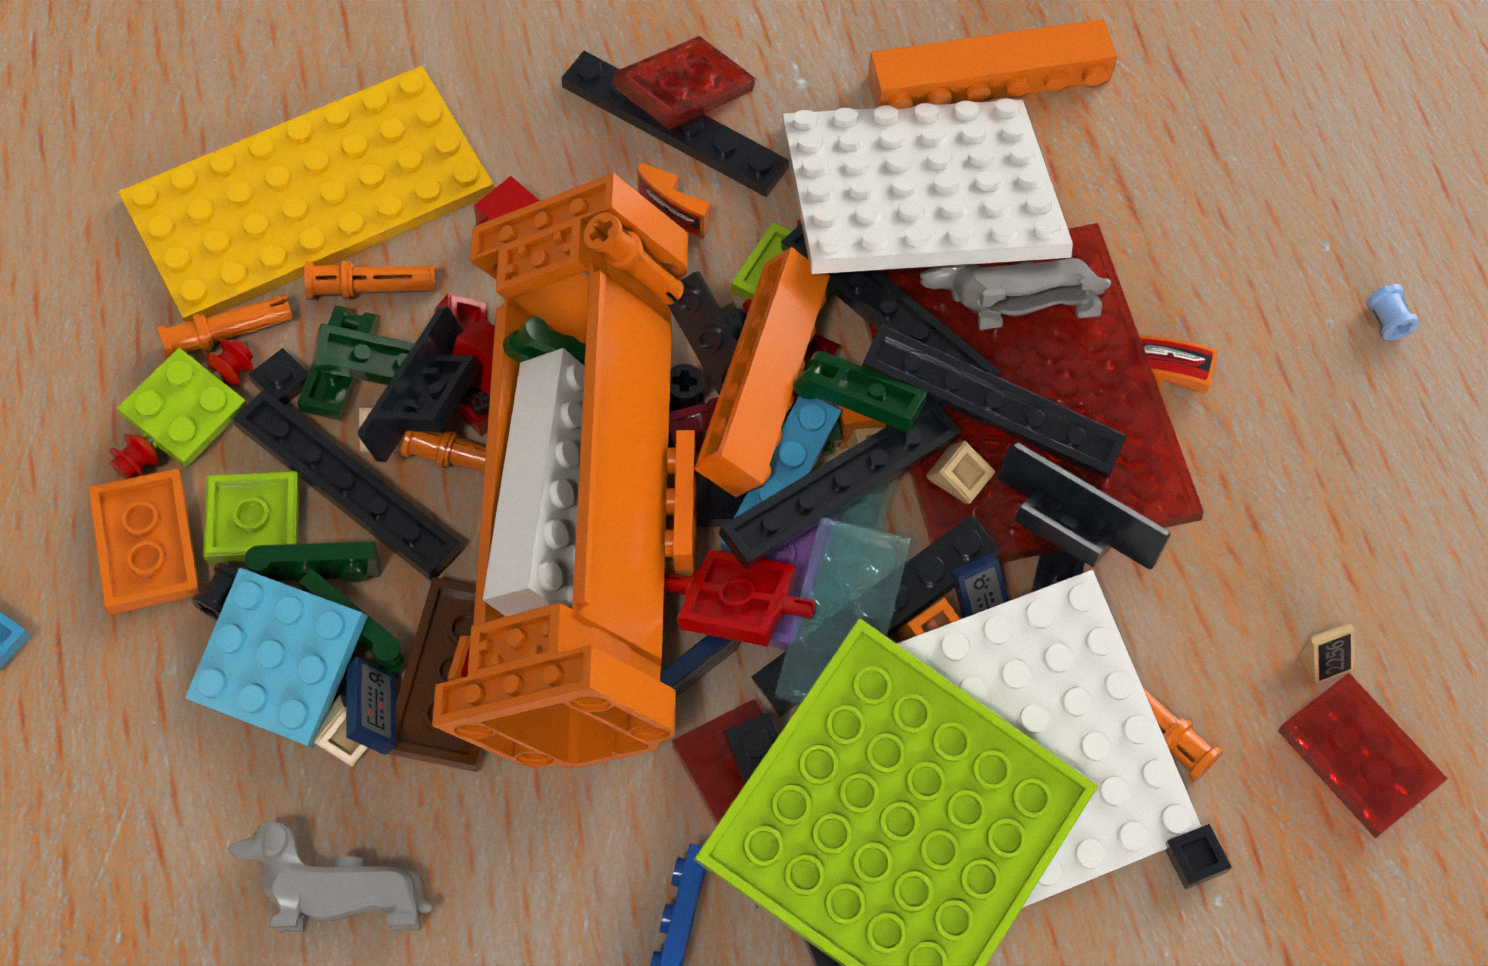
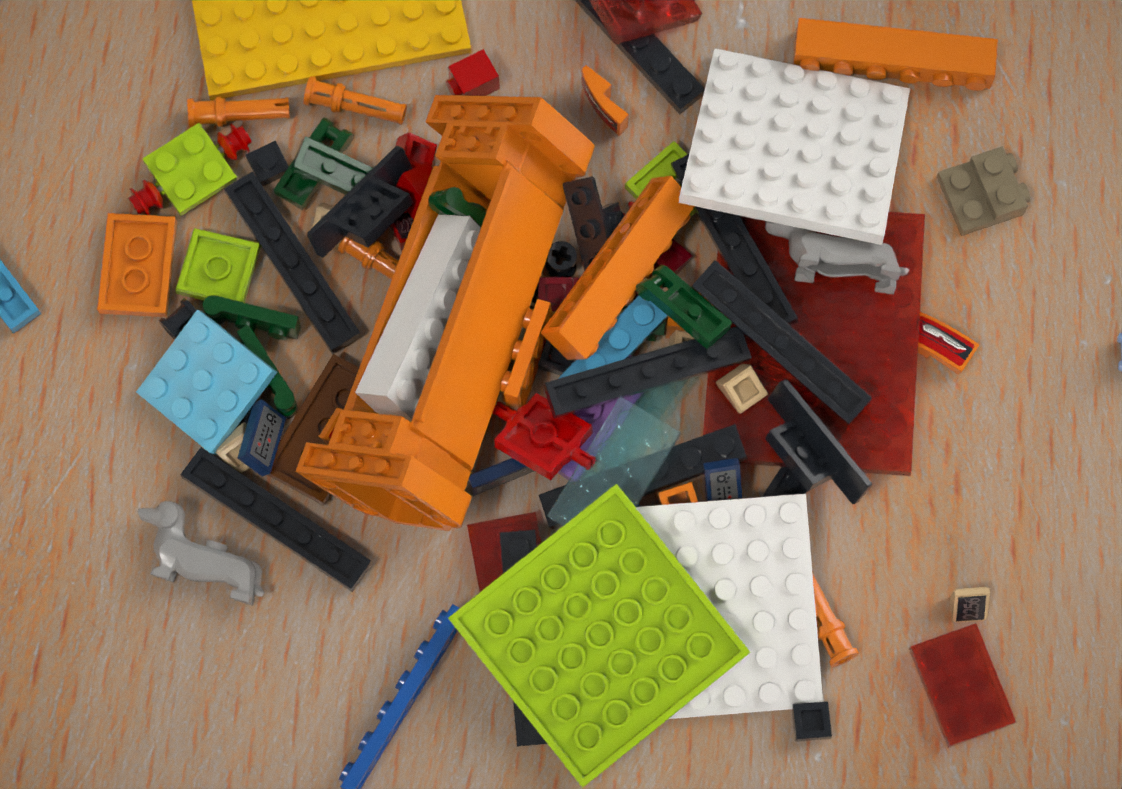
camera: 20 degrees right, 10 degrees up
(419, 806) = (276, 519): none -> black plate
(625, 252) = (535, 157): orange pin -> none
(1150, 185) = (984, 191): none -> dark tan plate

